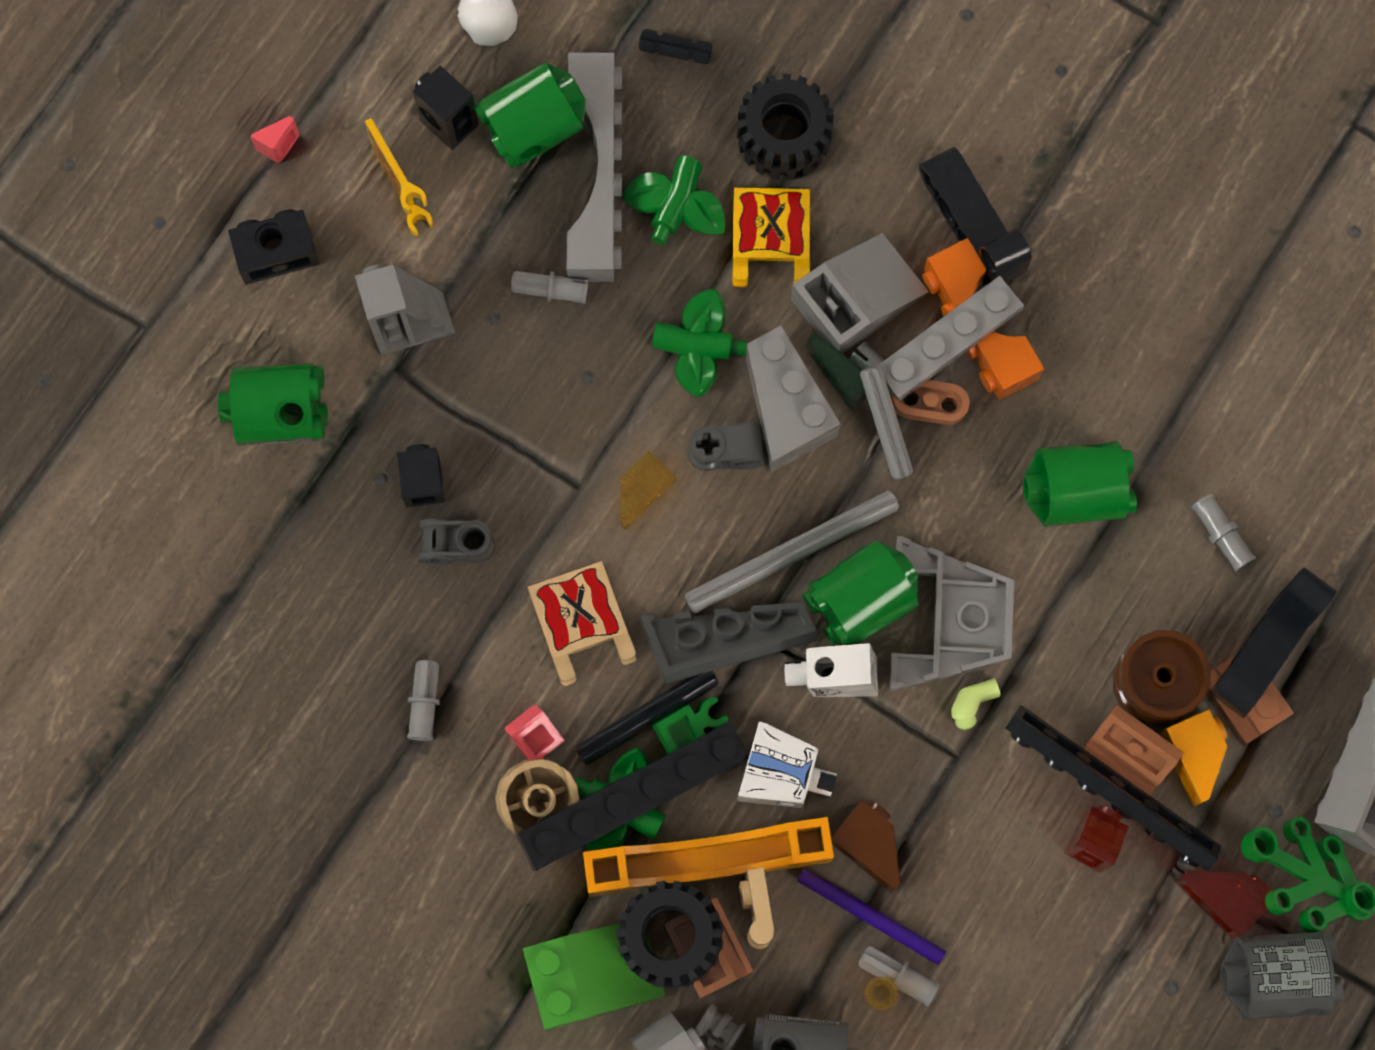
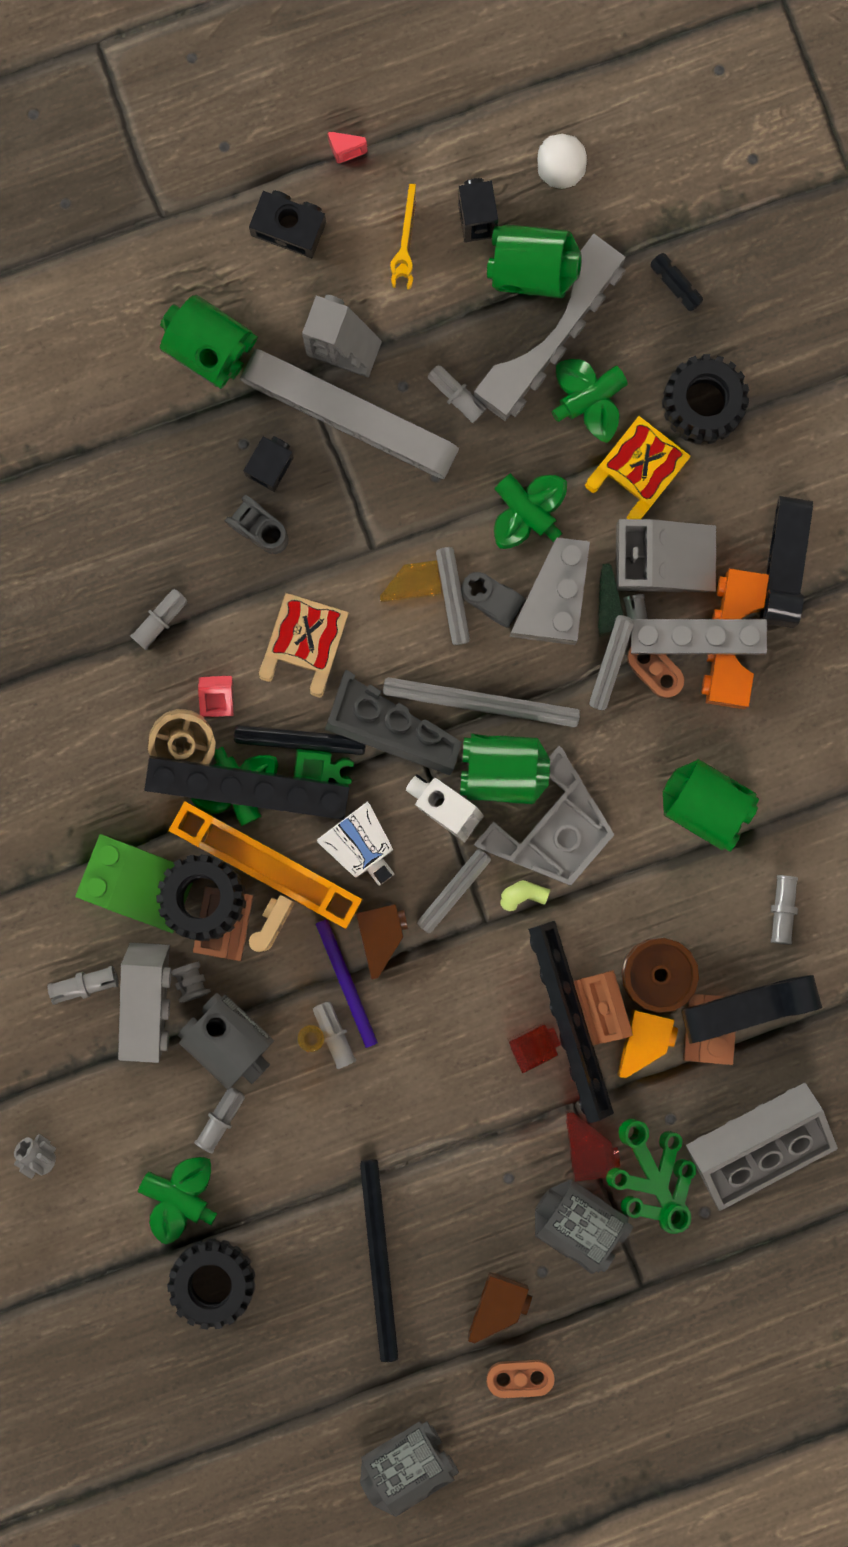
camera: 40 degrees right, 10 degrees up
(462, 376) = (349, 413): none -> light grey beam
(689, 473) = (452, 596): none -> light grey axle
(904, 749) = (453, 891): none -> light grey axle

